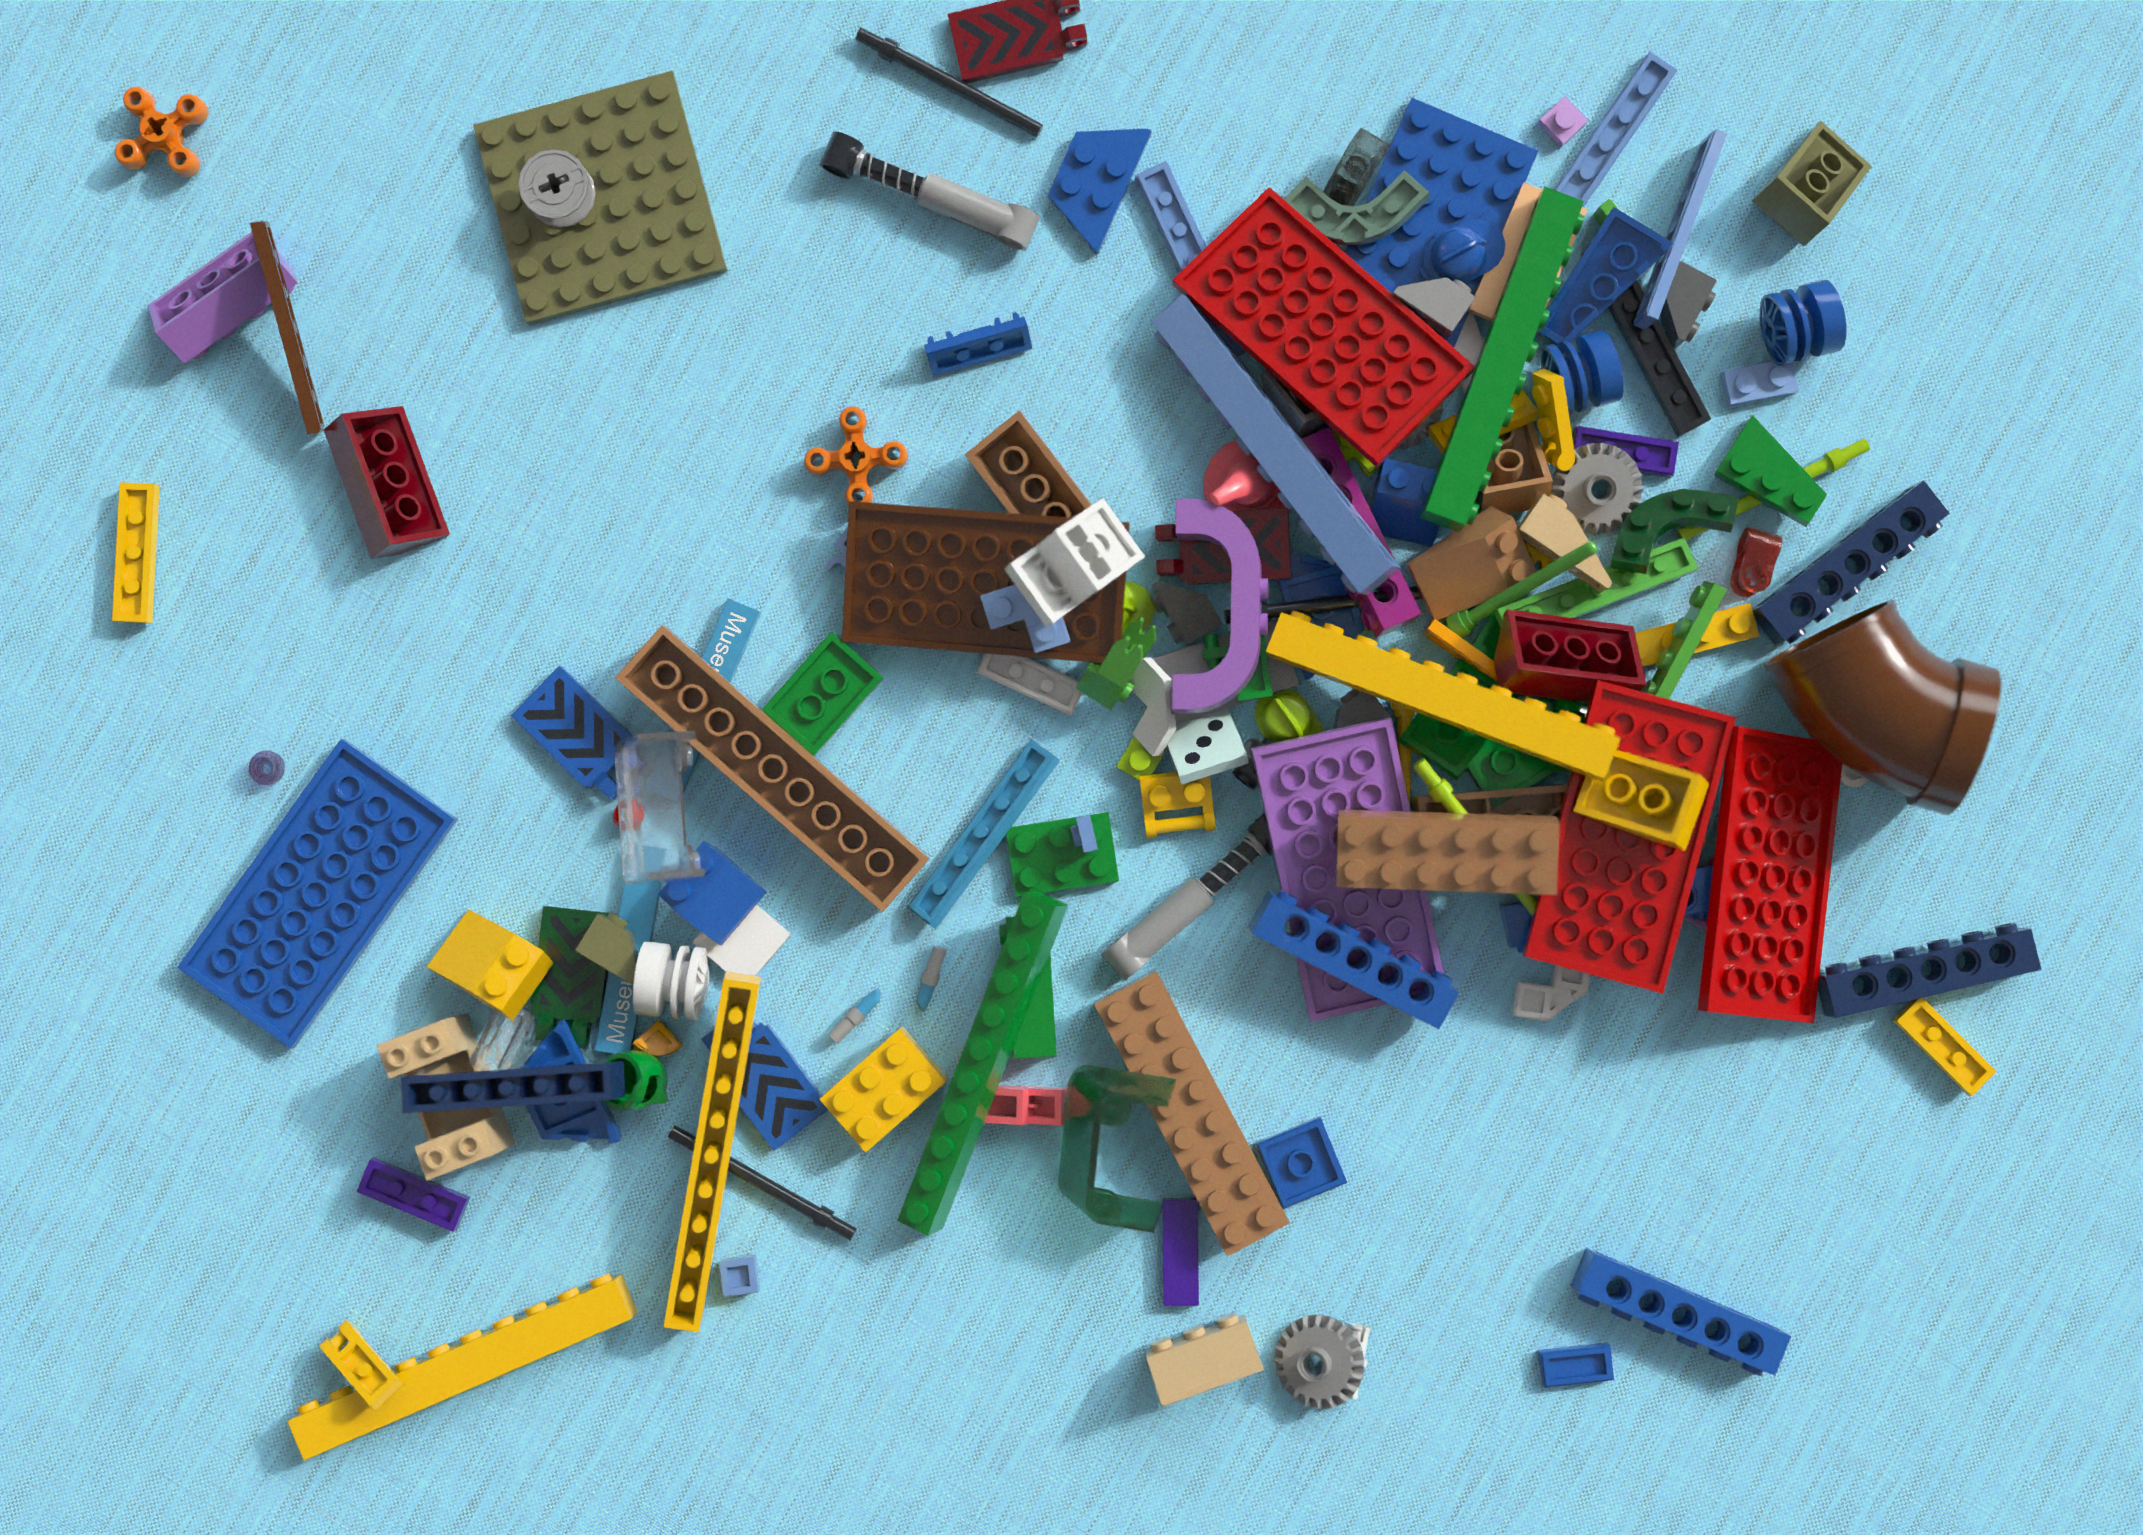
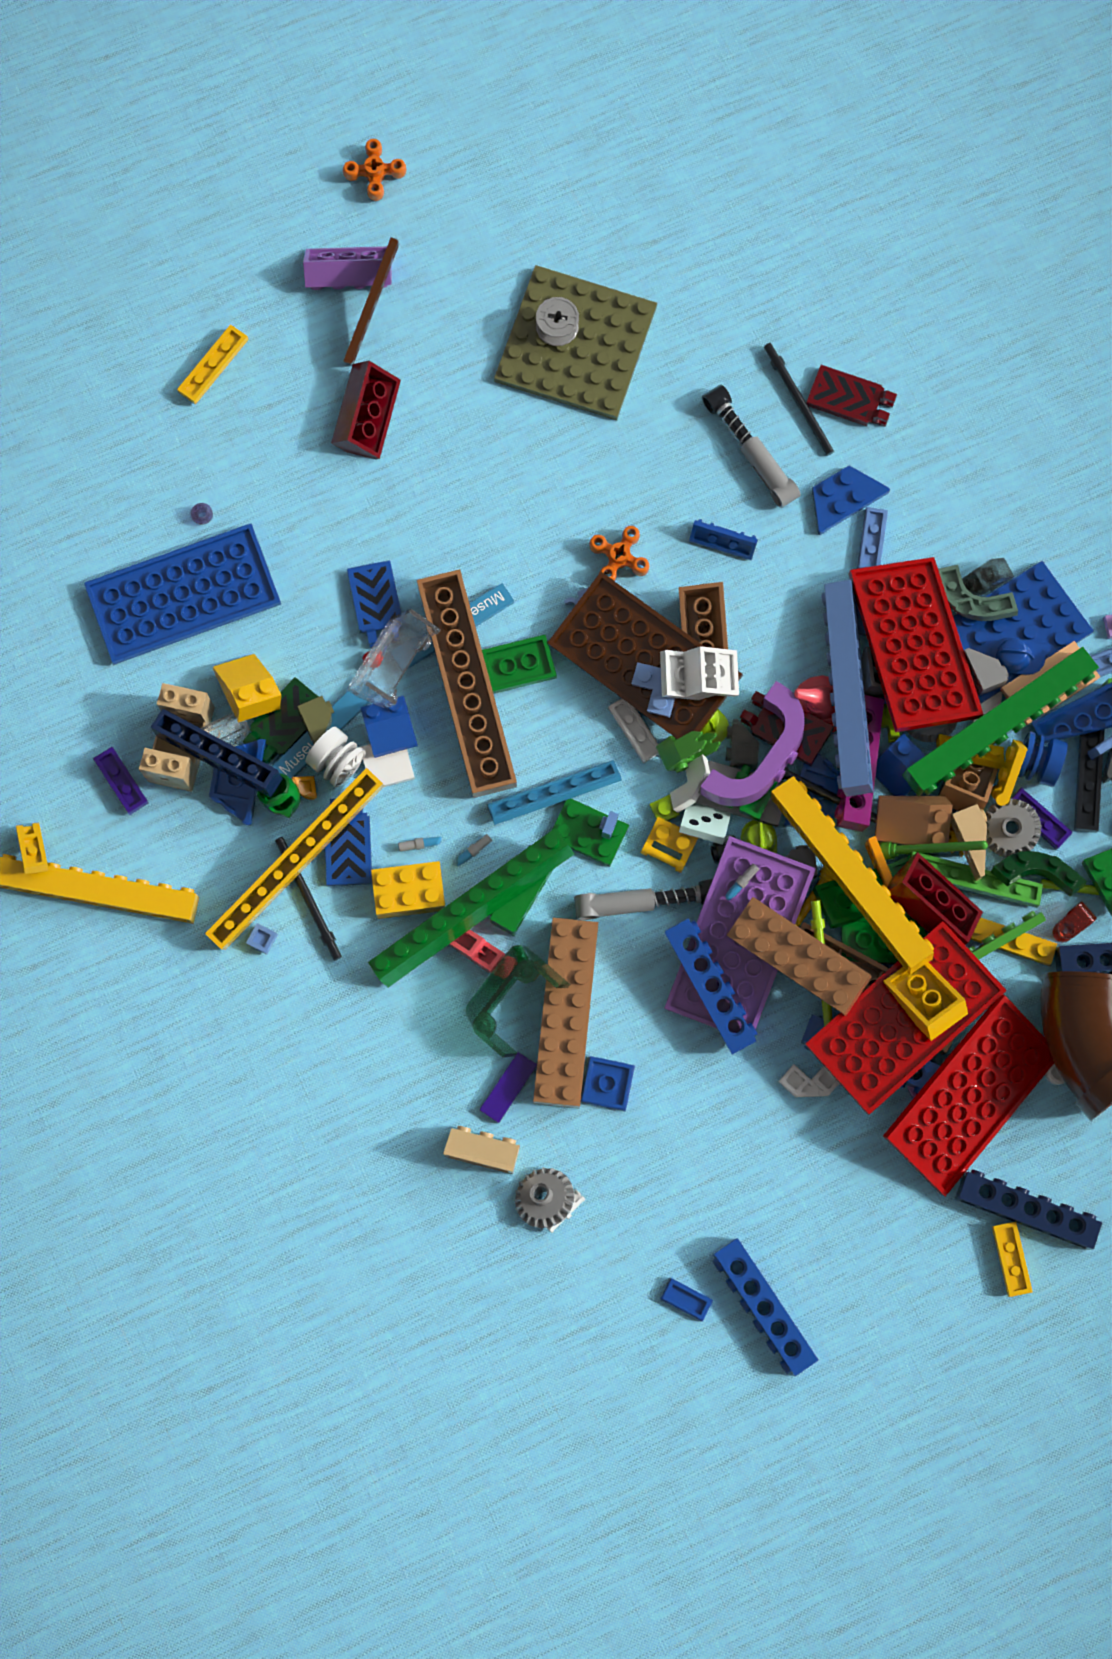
camera: 30 degrees right, 10 degrees down
(1307, 799) = (742, 881): none -> light grey piece

